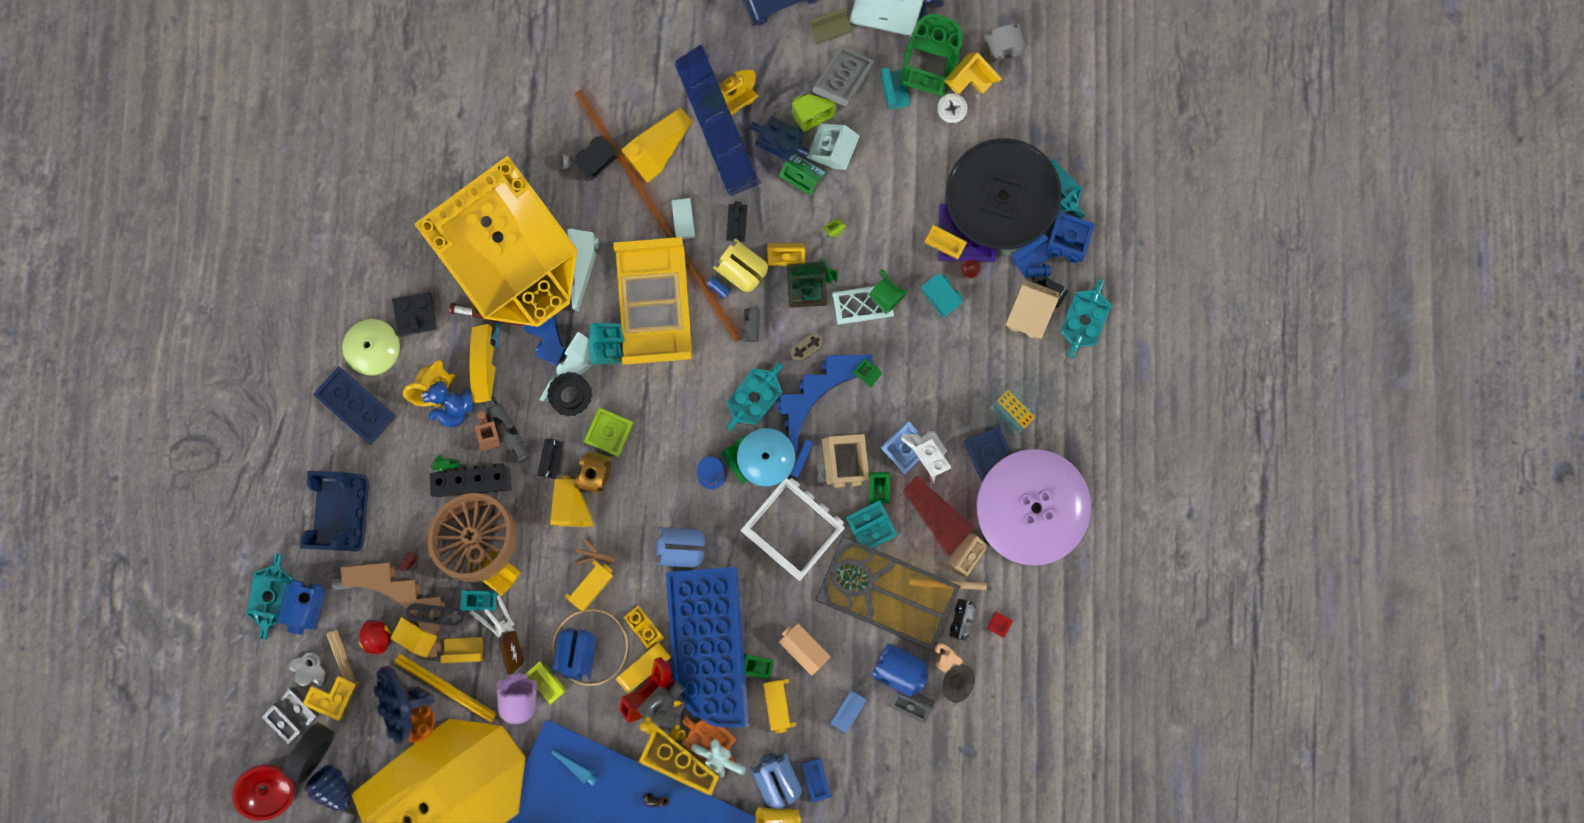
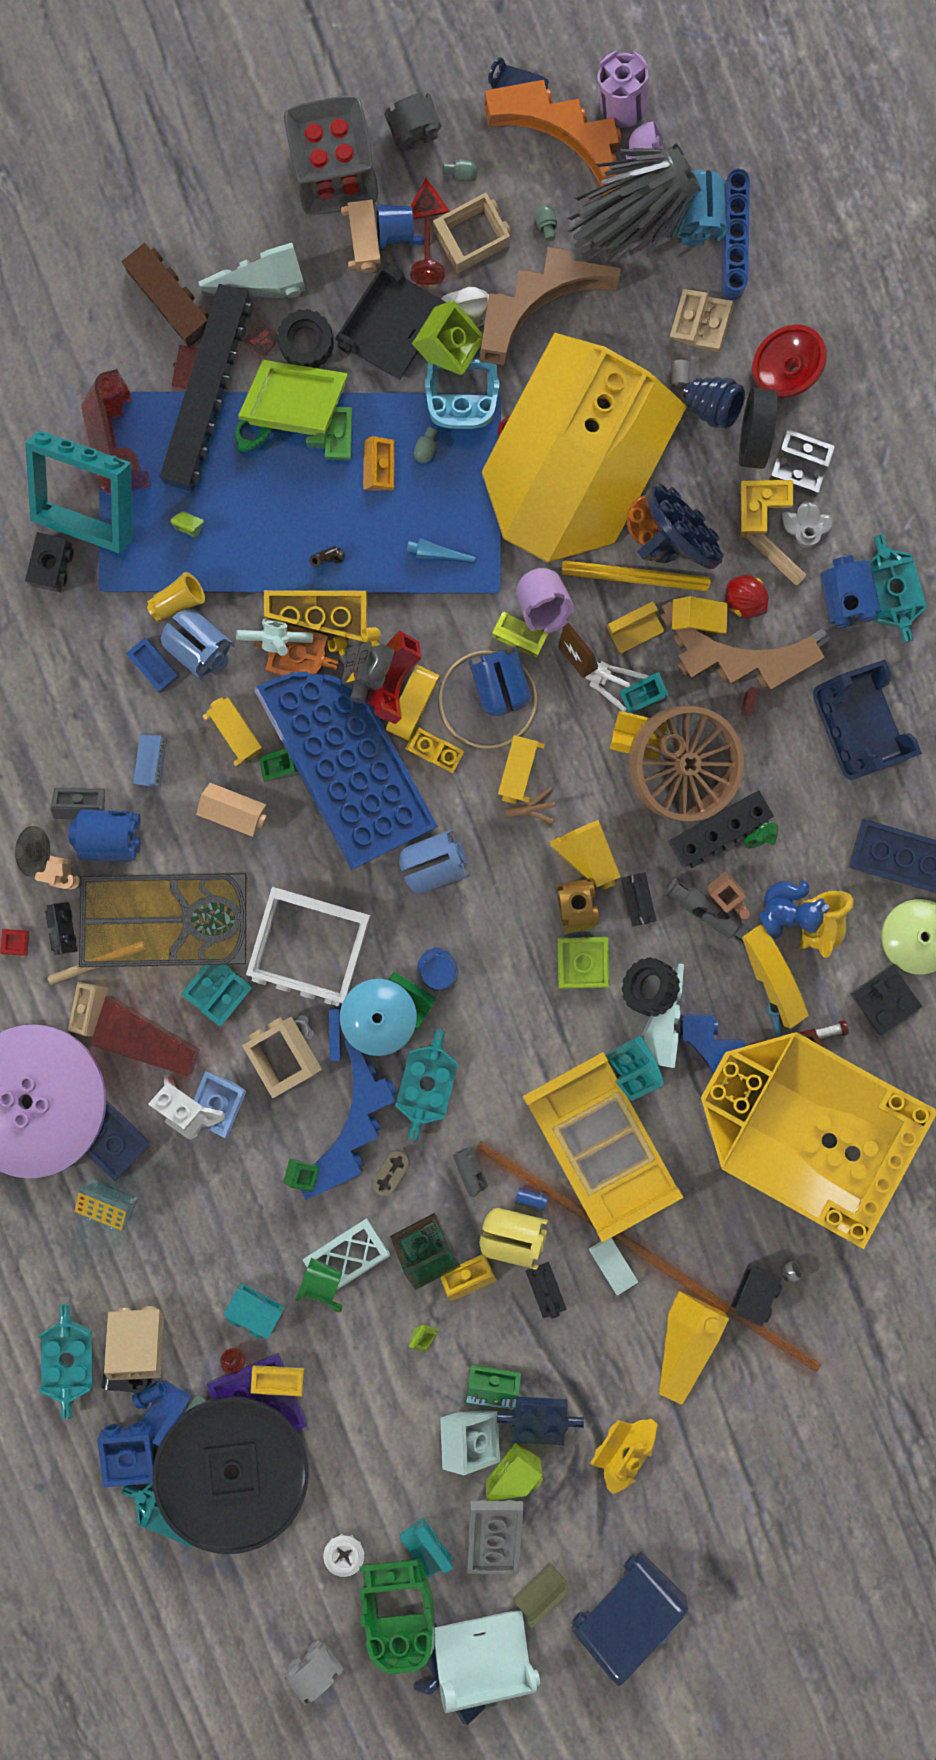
camera: 155 degrees right, 5 degrees up
(449, 621) = (690, 643): black beam -> none
(586, 252) = (715, 1179): light aqua wedge -> none
(716, 121) = (627, 1408): clear blue piece -> none
(831, 273) = (399, 1278): green hand -> none
(879, 487) = (227, 1042): green slope -> none
(972, 70) = (336, 1617): yellow panel -> none

